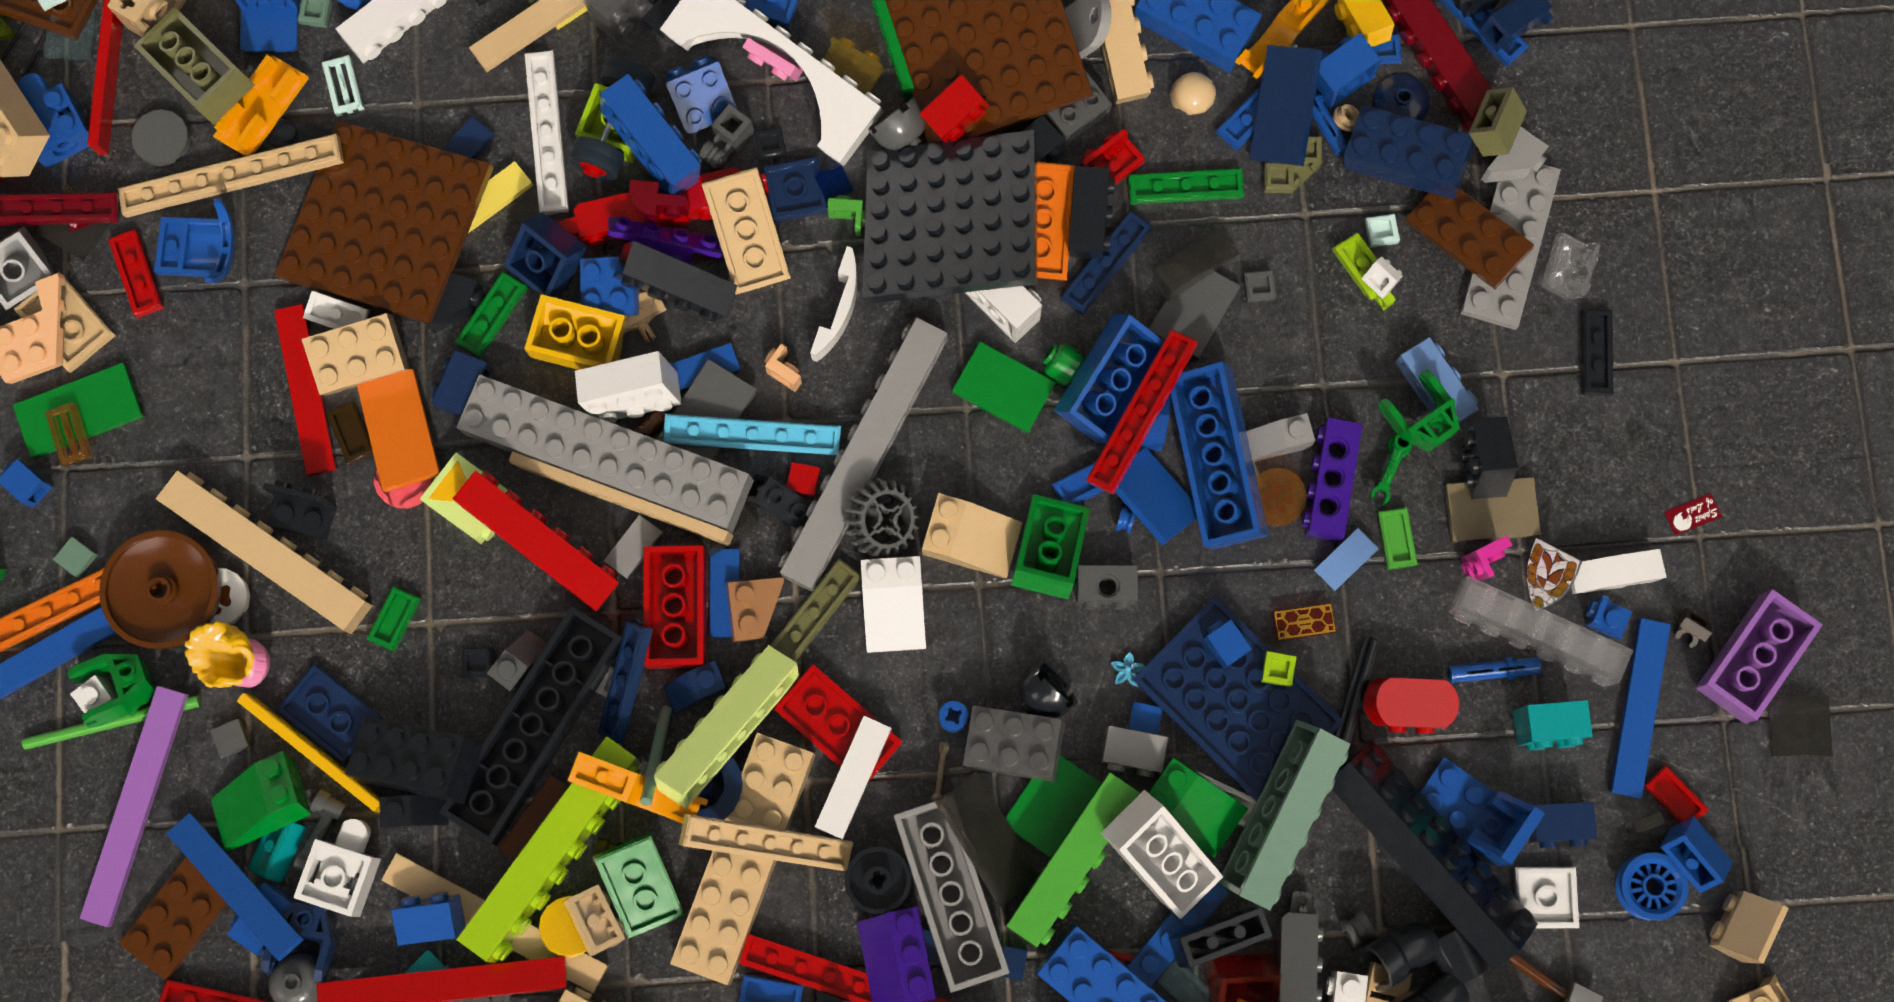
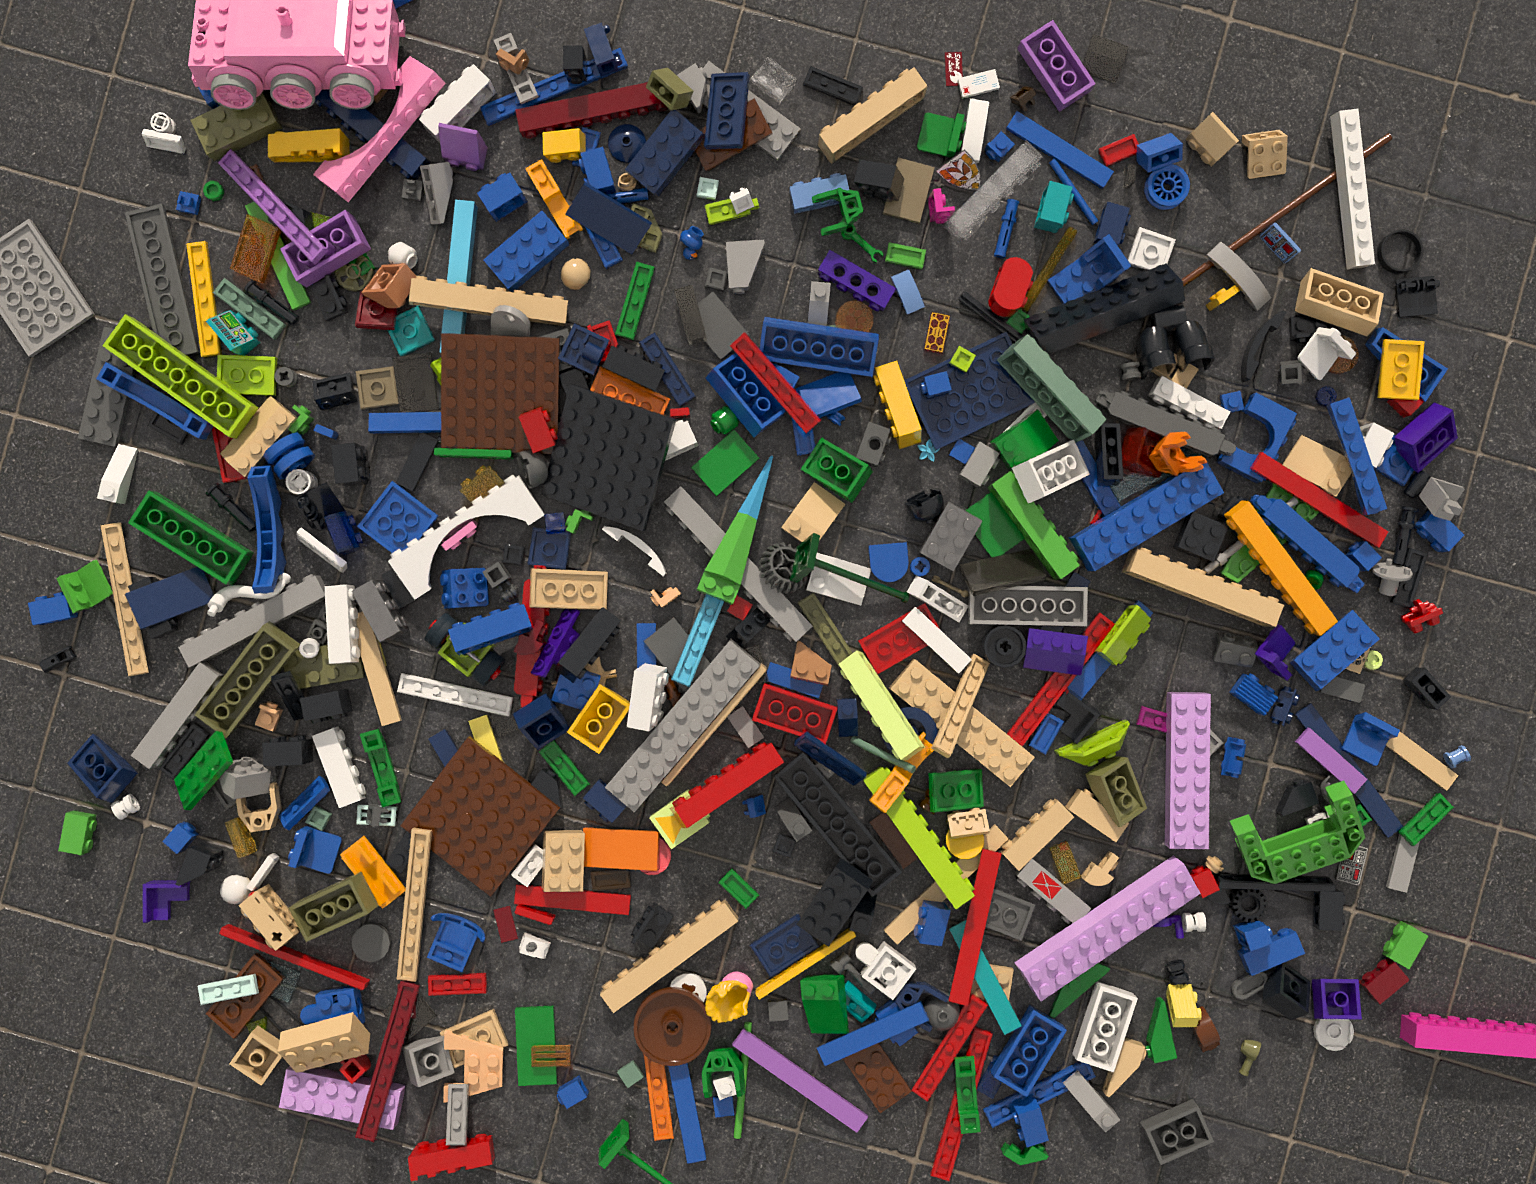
camera: 70 degrees left, 10 degrees up
(63, 708) = (723, 1107): none -> blue tile
(221, 358) = (534, 946): none -> white leg
(242, 310) = (505, 924): none -> dark red sticker
(267, 343) = (535, 914): none -> red tile
(341, 78) = (373, 815): none -> dark grey tile
(412, 70) = (382, 767): none -> green slope
(521, 600) = (755, 806): none -> blue tile
(858, 435) = (726, 567): none -> bright green plate
(903, 540) = (806, 559): none -> dark green tile
(915, 759) = (937, 598): none -> white slope
(945, 669) = (888, 561): none -> blue tile
(1051, 299) = (680, 412): none -> red tile
(1089, 133) = (584, 349): none -> dark blue plate
(1177, 600) = (898, 404): none -> yellow wedge
(1295, 313) = (742, 263): none -> light grey slope
(1301, 233) = (693, 240): none -> blue animal
(1365, 732) = (1017, 321): none -> green tile
(1461, 753) = (1049, 267): none -> clear yellow axle
(1500, 213) = (727, 110): none -> dark blue tile
(1578, 417) = (872, 115): none -> tan brick
(1587, 750) = (1077, 197): none -> blue bar
(1591, 526) = (941, 134): none -> green bracket
(1686, 556) = (978, 84): none -> white tile

